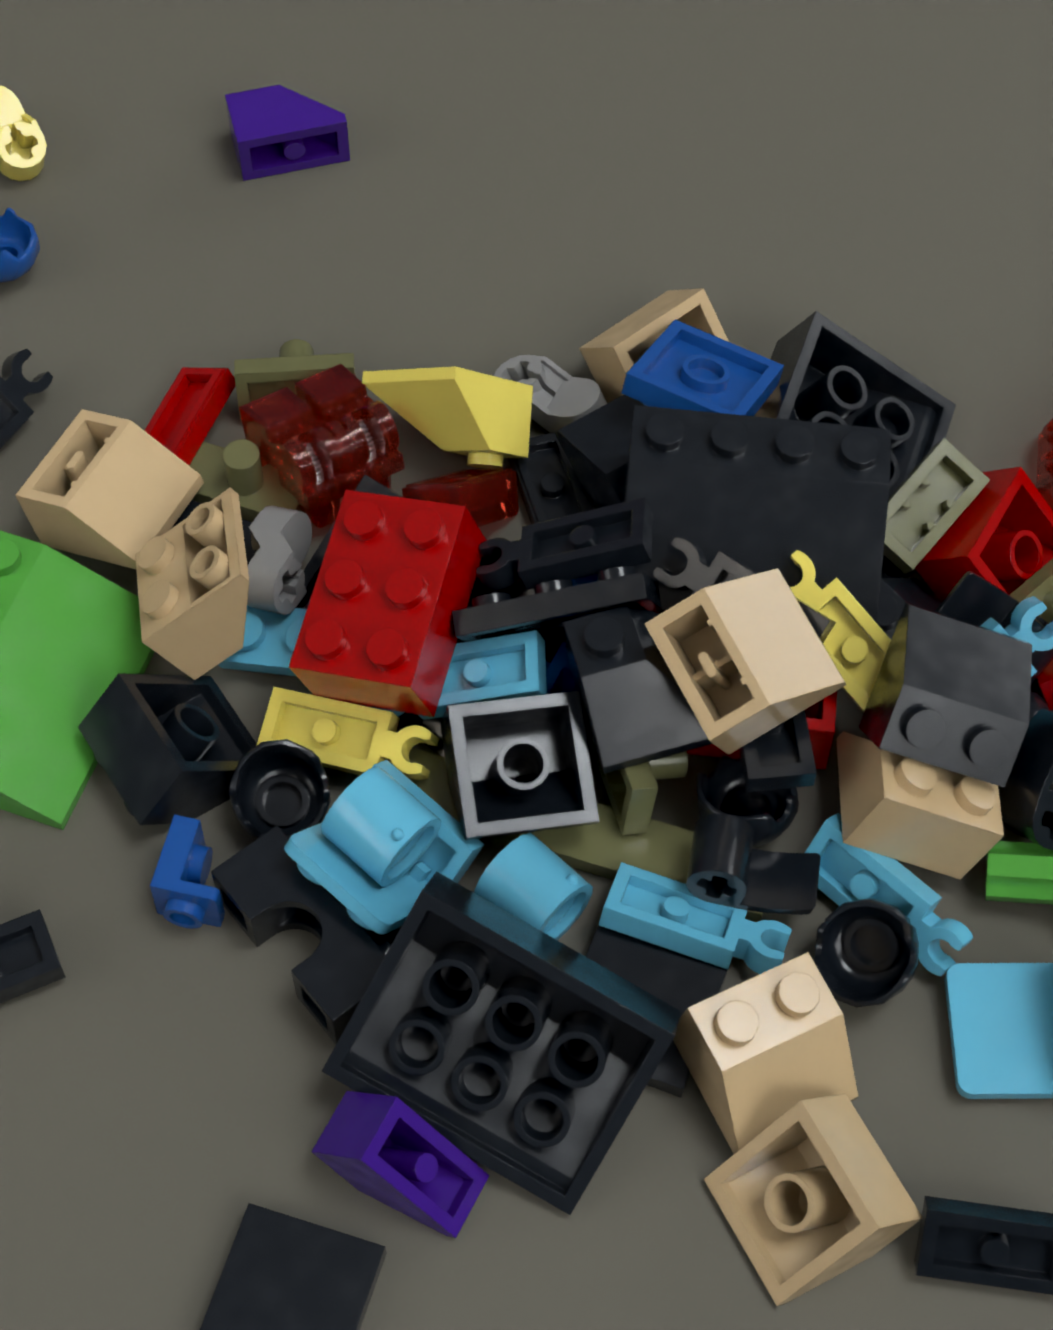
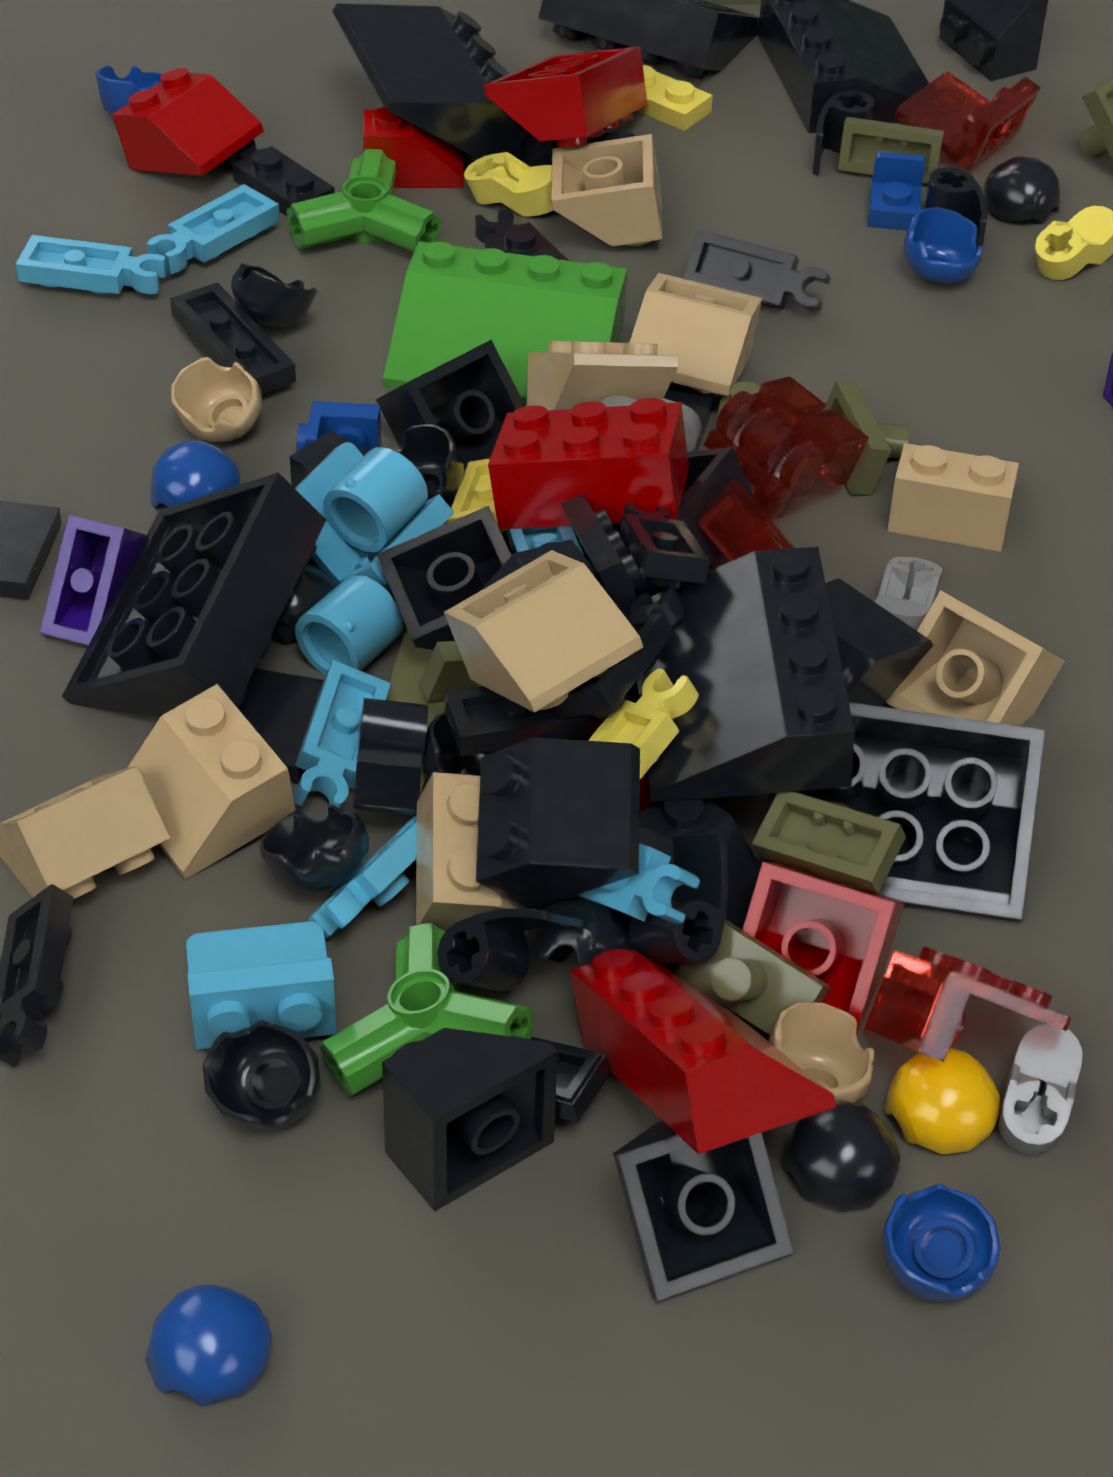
camera: 80 degrees right, 15 degrees down
(96, 1000) = (216, 400): none -> tan hair
(190, 409) = (817, 381): red tile -> none
(223, 1047) = (191, 472): none -> blue hair
(397, 315) = (952, 497): none -> tan slope
(460, 410) = (847, 517): light yellow slope -> none
(701, 374) = (914, 644): blue plate -> none

